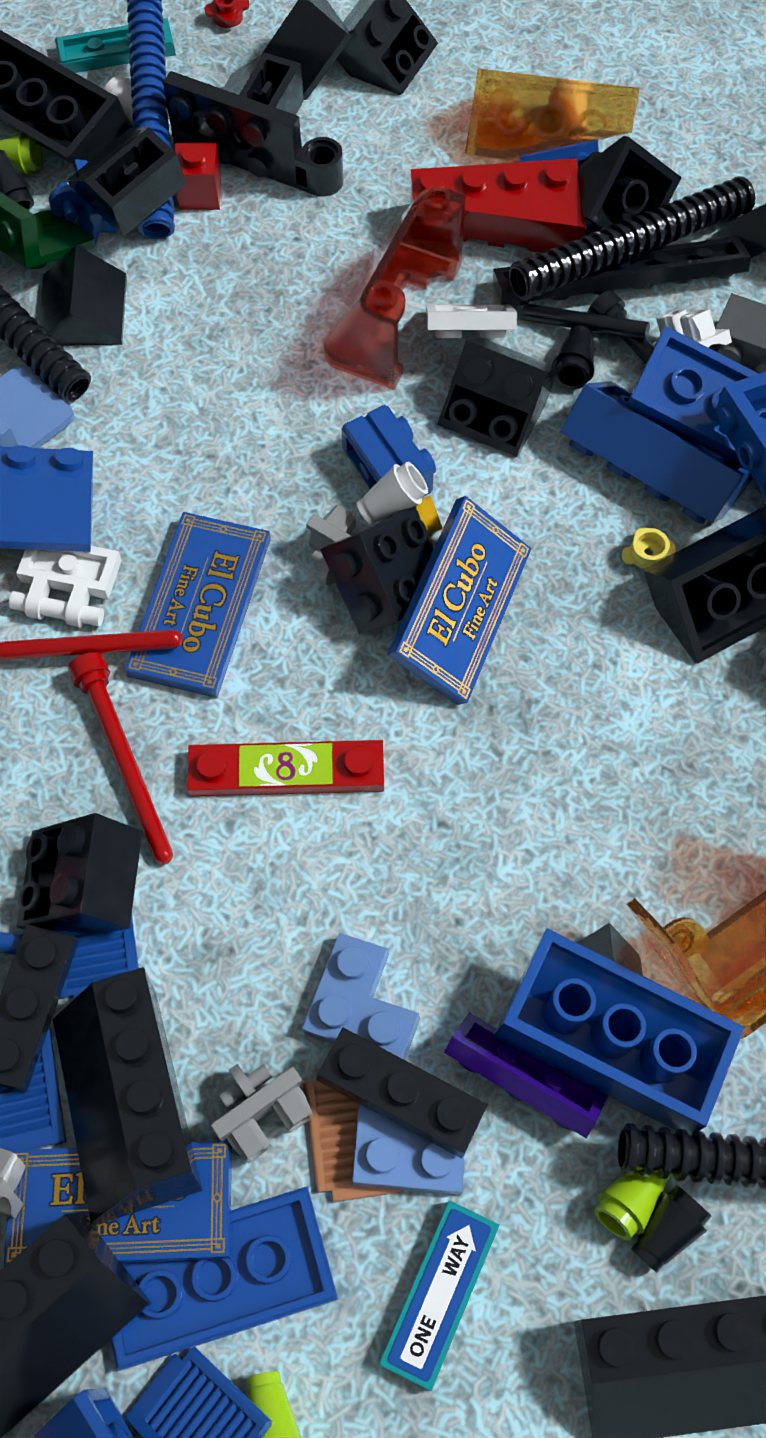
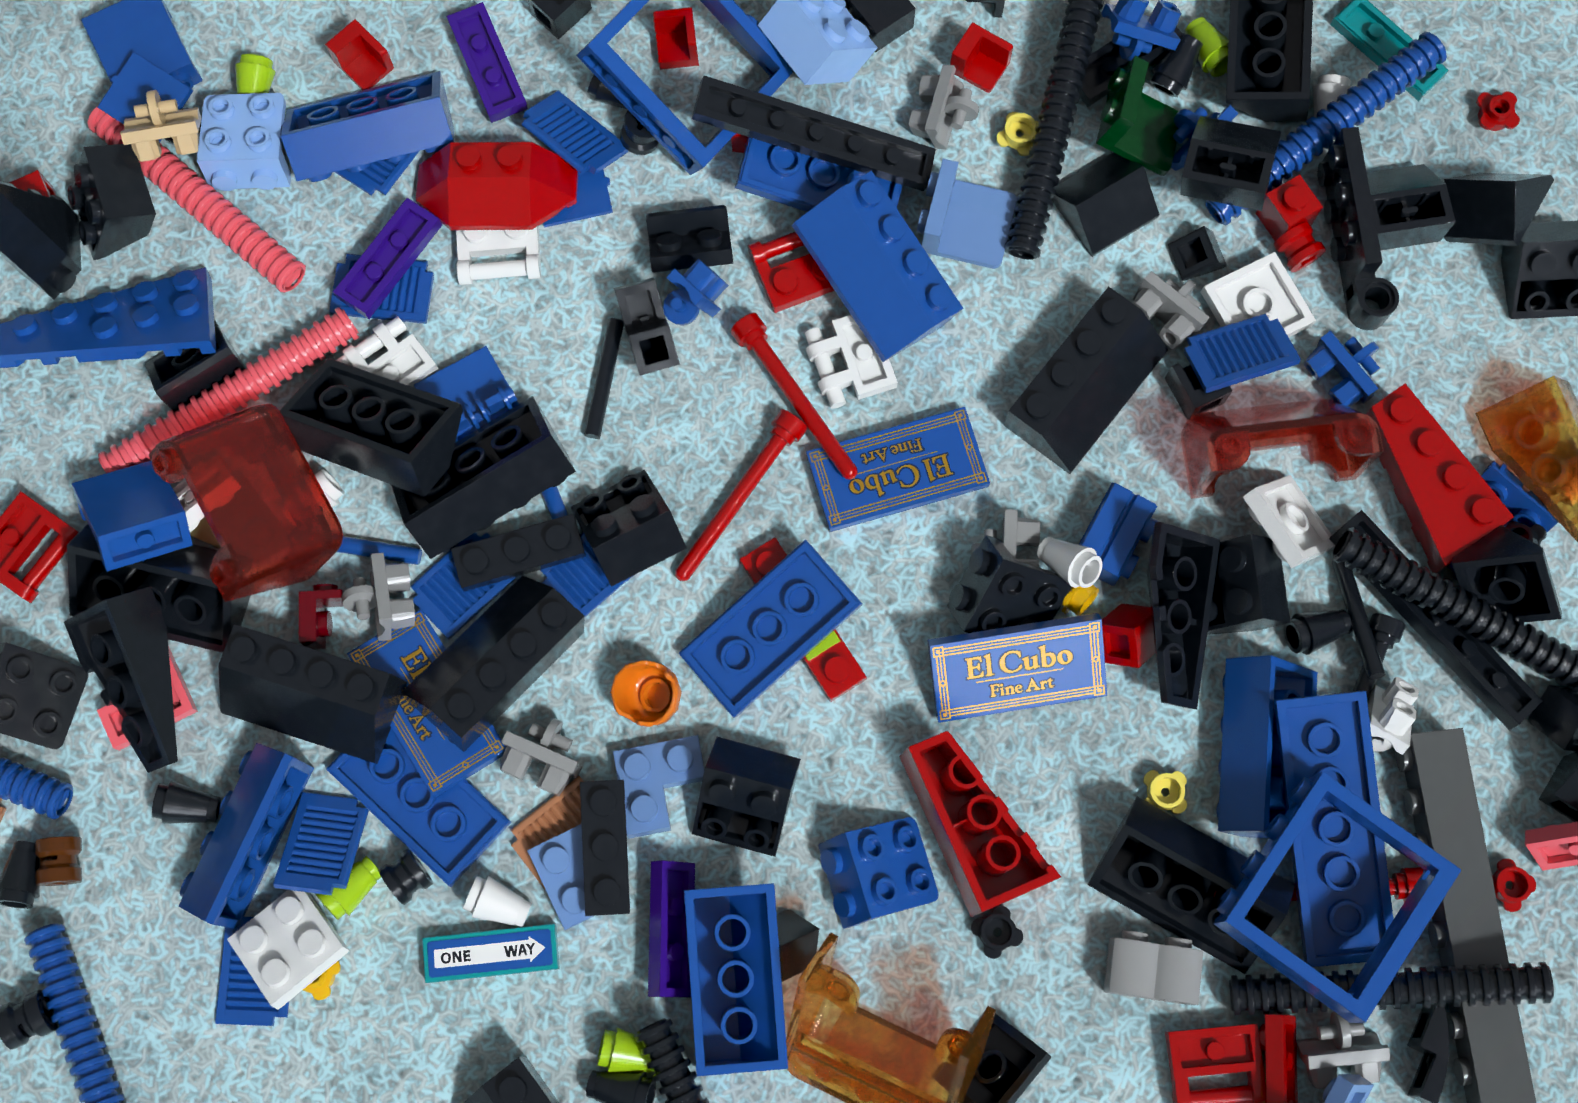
camera: 60 degrees right, 10 degrees up
(182, 265) = (1197, 254): none -> black slope
(216, 305) = (1172, 306): none -> light grey hips
(232, 404) = (1087, 381): none -> black slope
(234, 188) = (1299, 247): none -> red wheel
(262, 245) = (1257, 290): none -> white plate
(264, 956) = (646, 693): none -> orange hair
(278, 799) = (770, 628): none -> blue tile
(295, 271) = (1240, 352): none -> blue window
(298, 1342) = (405, 876): none -> black wheel
(301, 332) = (1190, 393): none -> black panel
(361, 210) = (1355, 383): none -> blue hips
(388, 1253) = (496, 903): none -> white cone
(432, 919) = (745, 796): none -> black slope
(471, 426) = (1180, 596): none -> black wedge
(491, 492) = (1128, 635): none -> red panel
(581, 840) = (877, 871): none -> blue bracket
(590, 723) = (972, 826): none -> red wedge
(707, 752) = (1009, 933): none -> black plate

